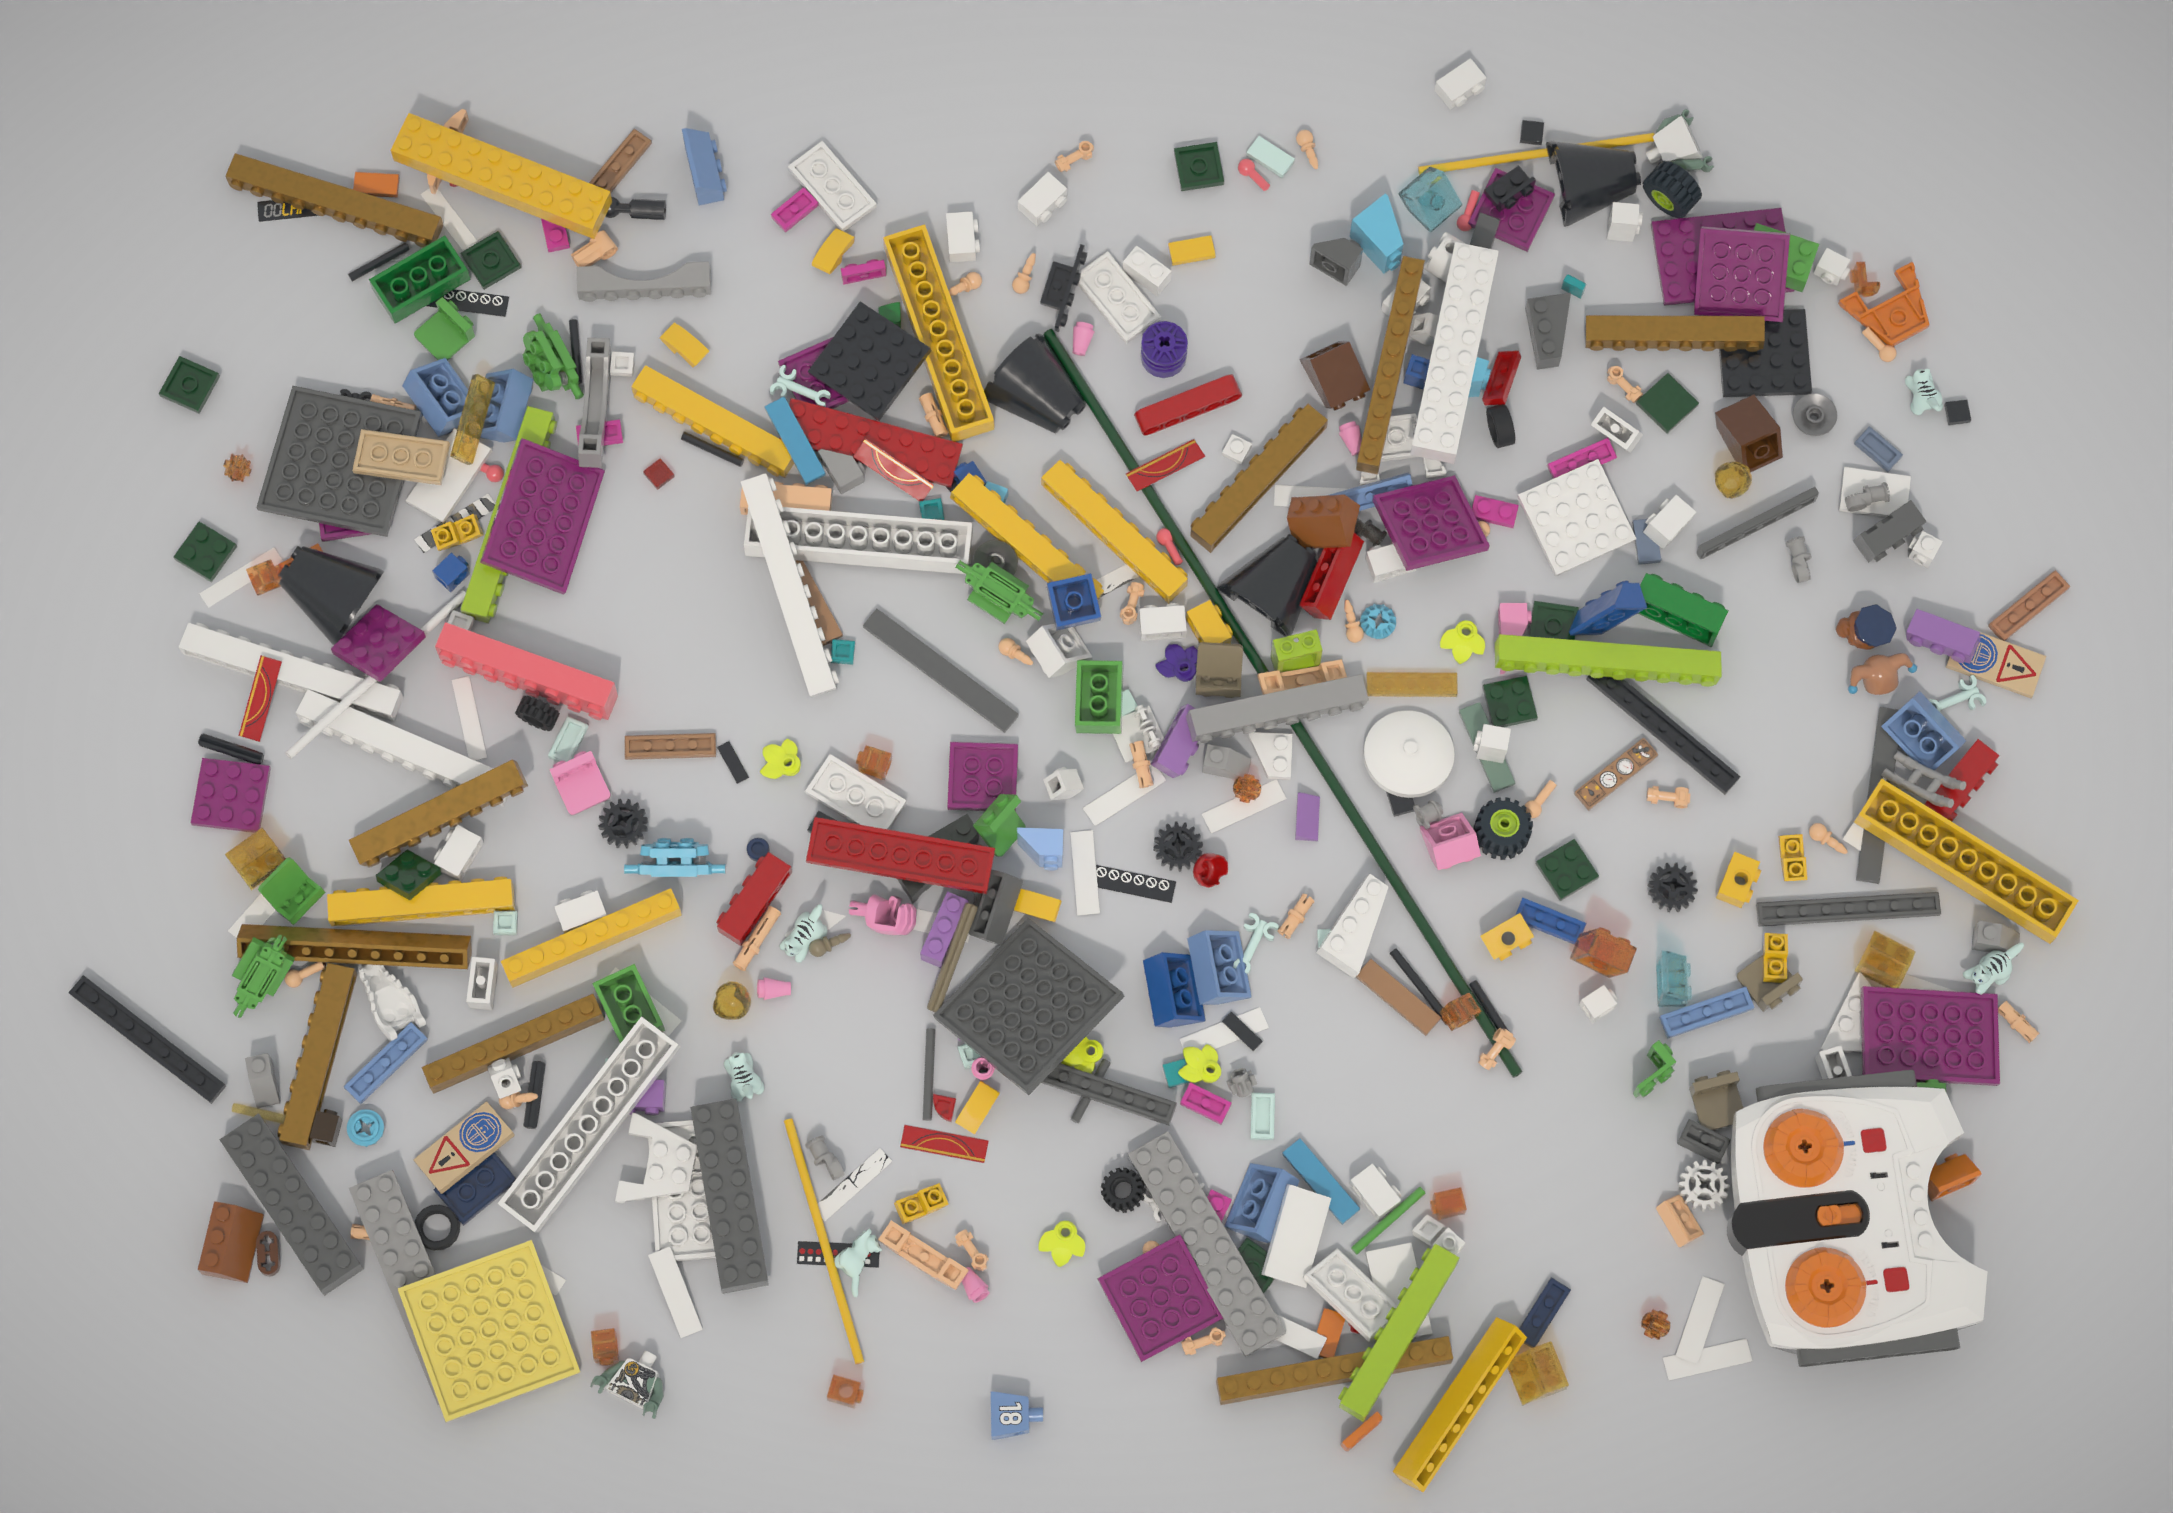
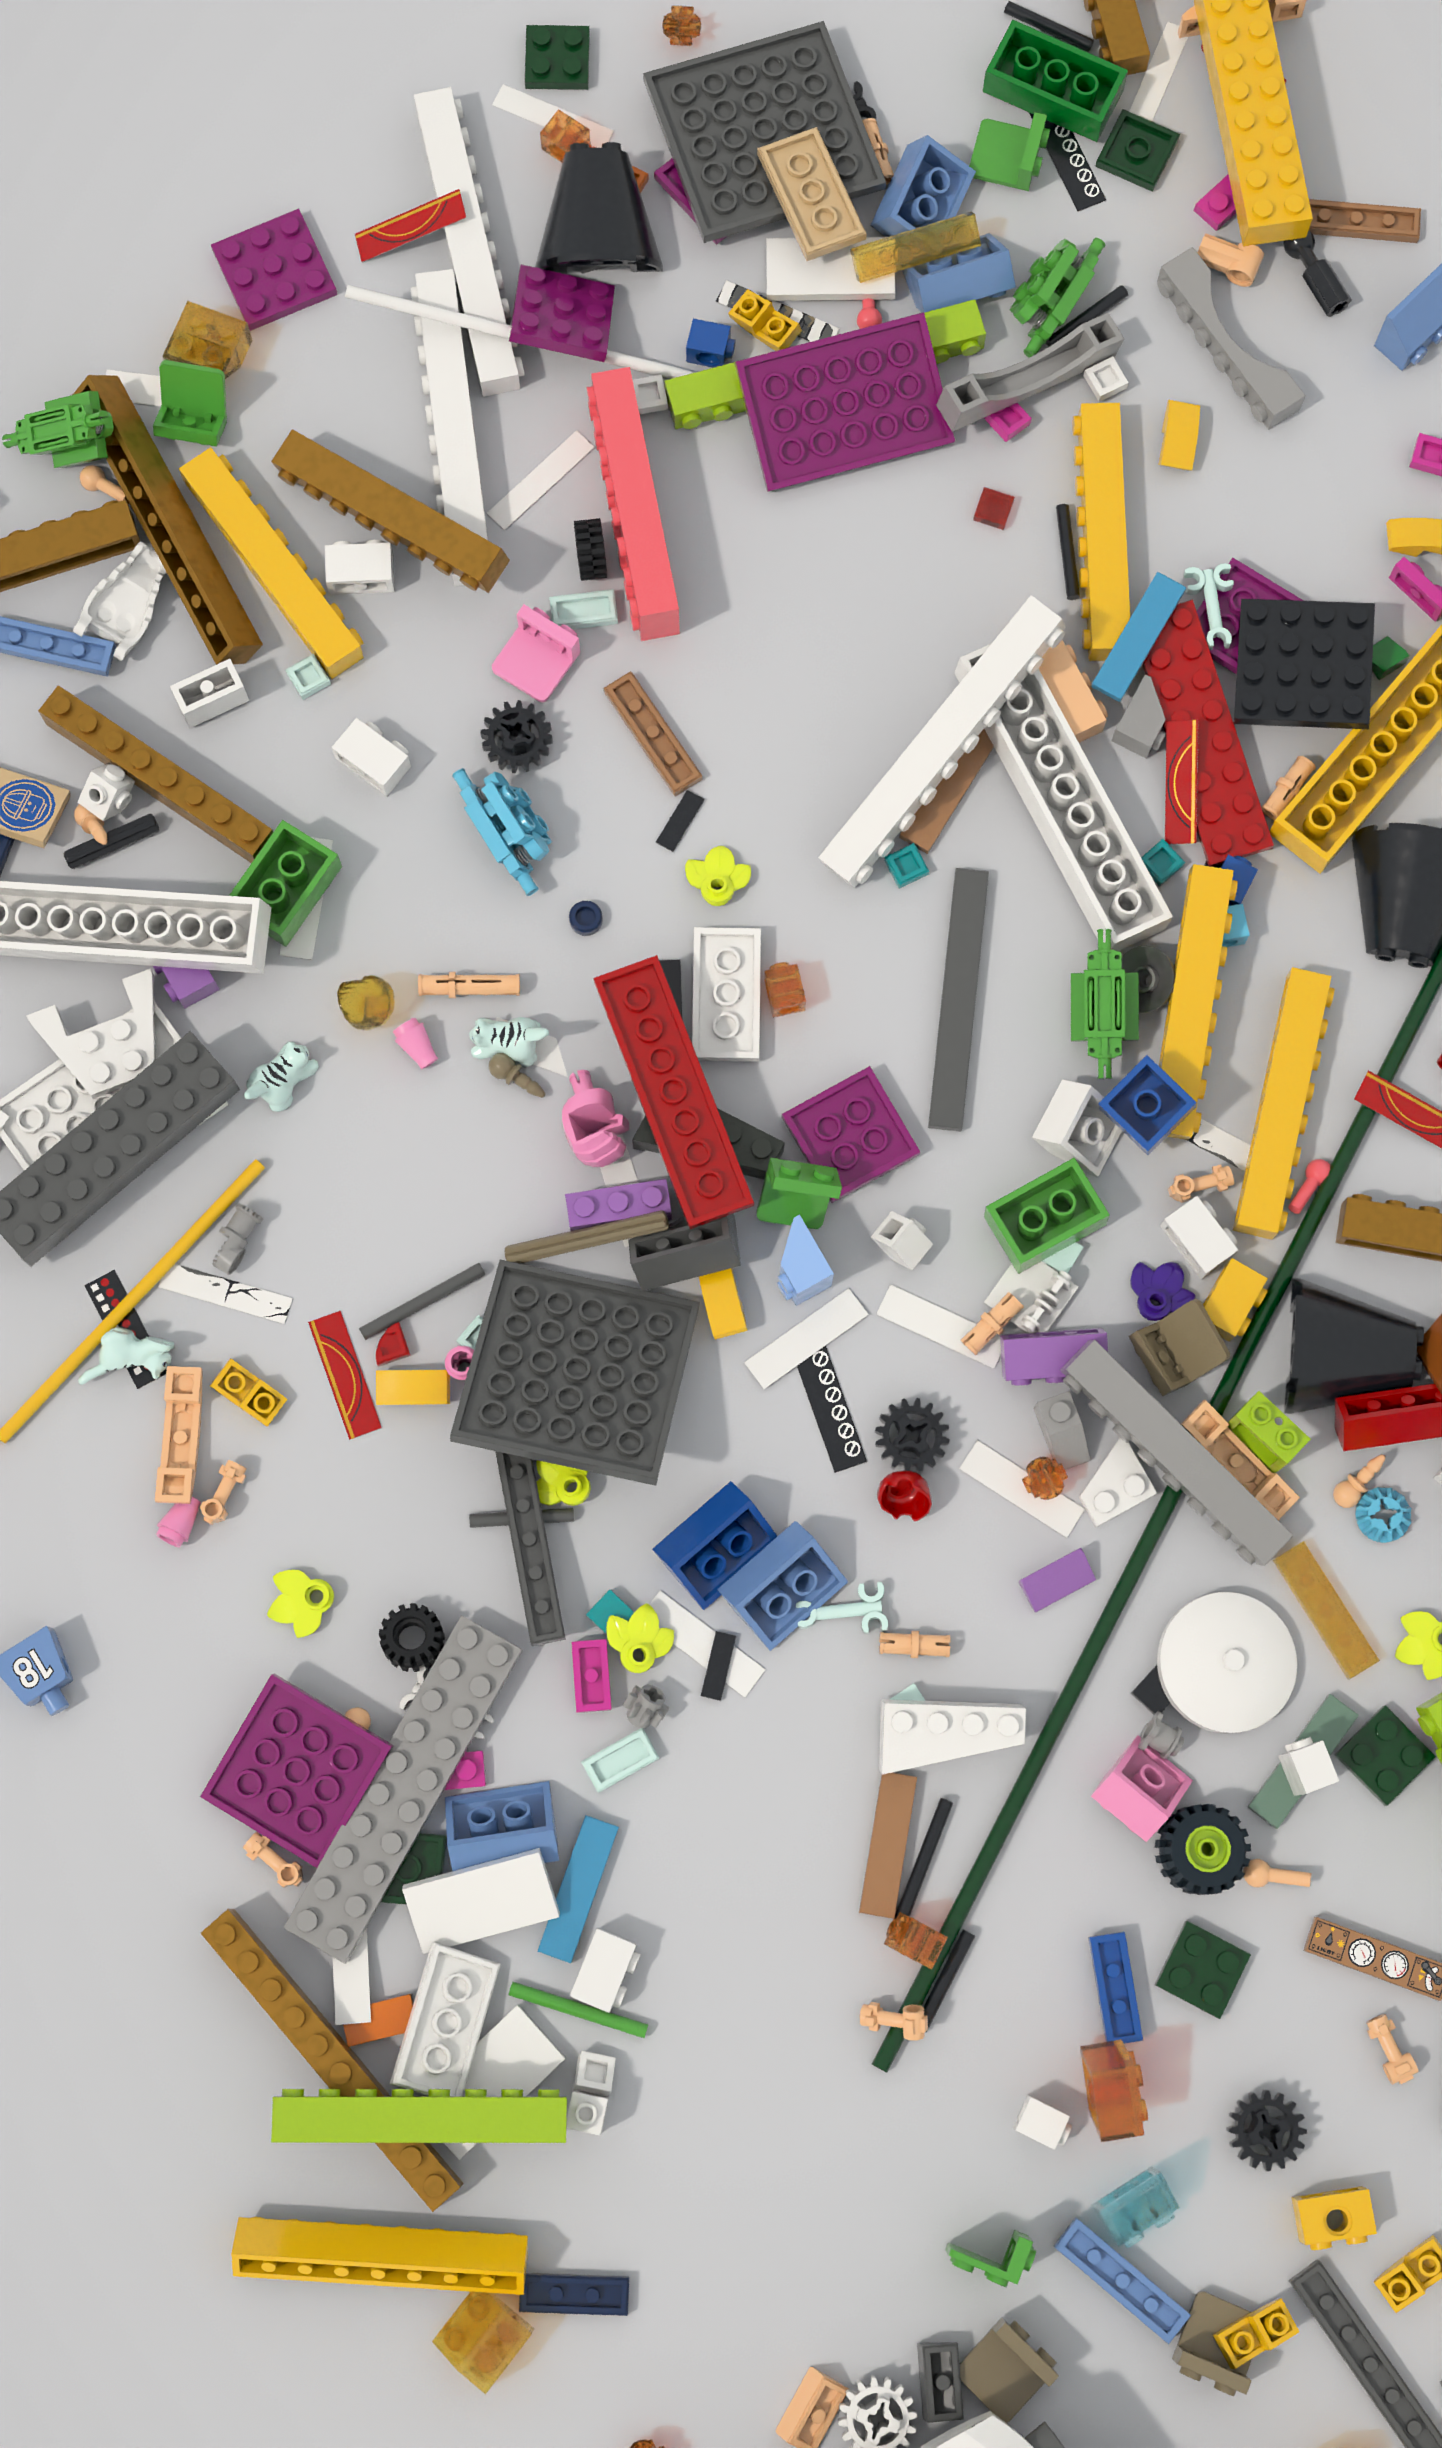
camera: 60 degrees right, 5 degrees up
(230, 749) = (330, 234): black axle -> none
(408, 874) = (293, 525): dark green plate -> none
(591, 938) = (347, 787): yellow brick -> none
(754, 898) = (516, 950): red brick -> none
(1009, 648) = (1042, 1064): light nougat bar -> none
(1362, 1431) = (262, 2140): orange tile -> none
(1448, 1203) = (645, 2078): clear orange brick -> none
(1518, 927) = (1078, 1945): yellow brick -> none

